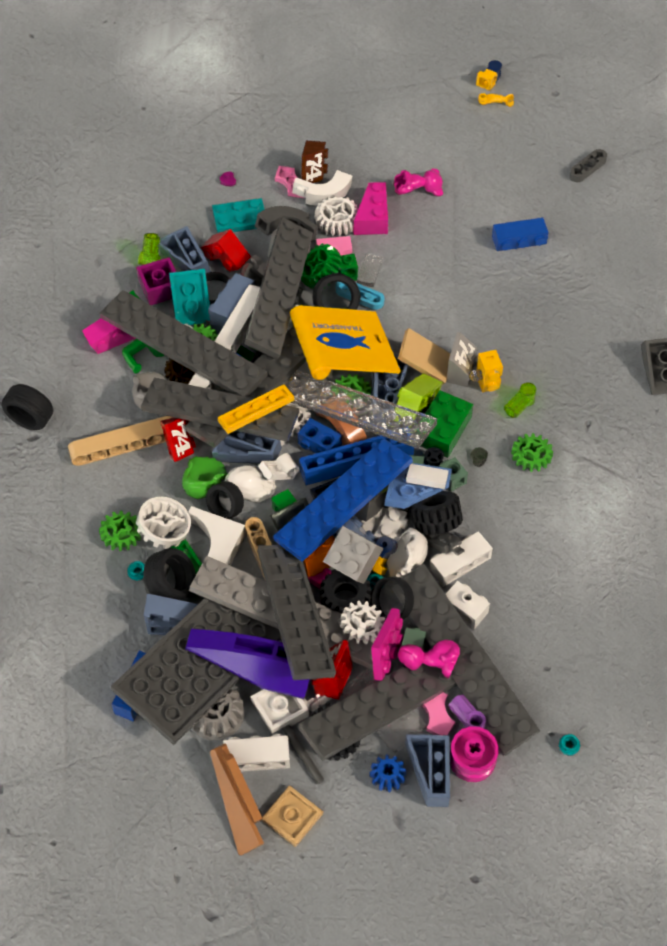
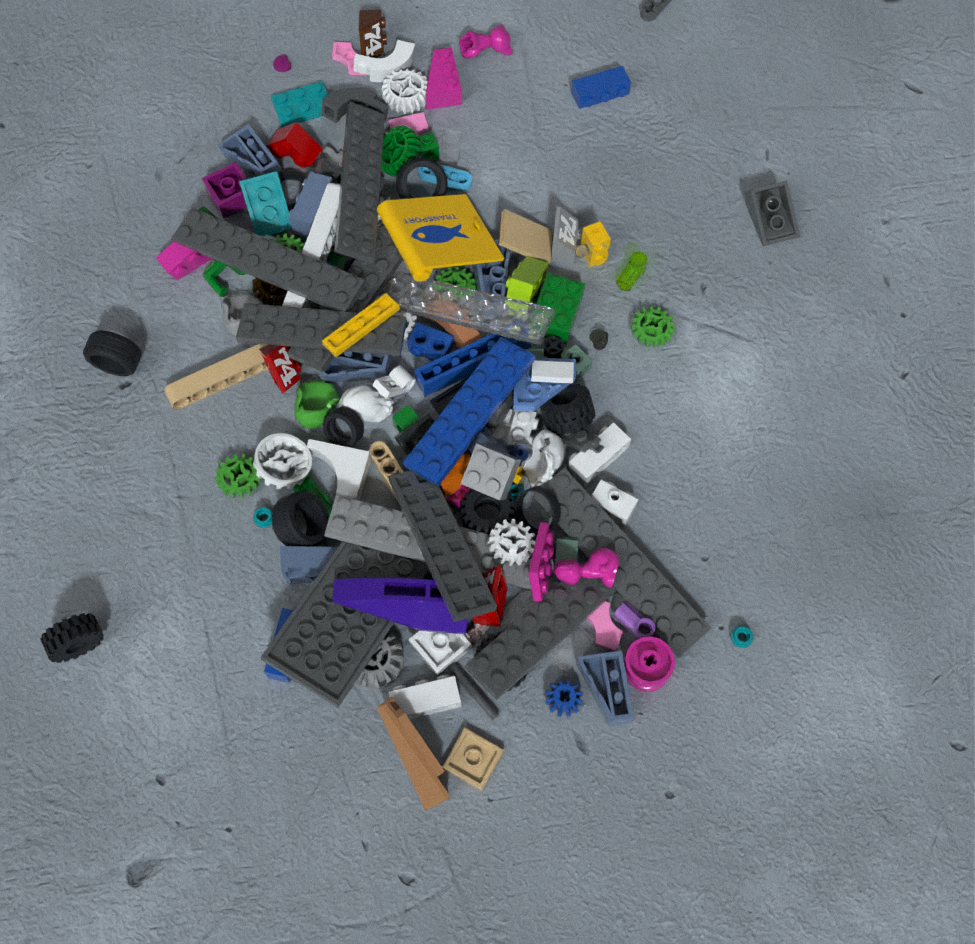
camera: 10 degrees left, 10 degrees up
(150, 249) = (213, 156): clear neon green piece -> none

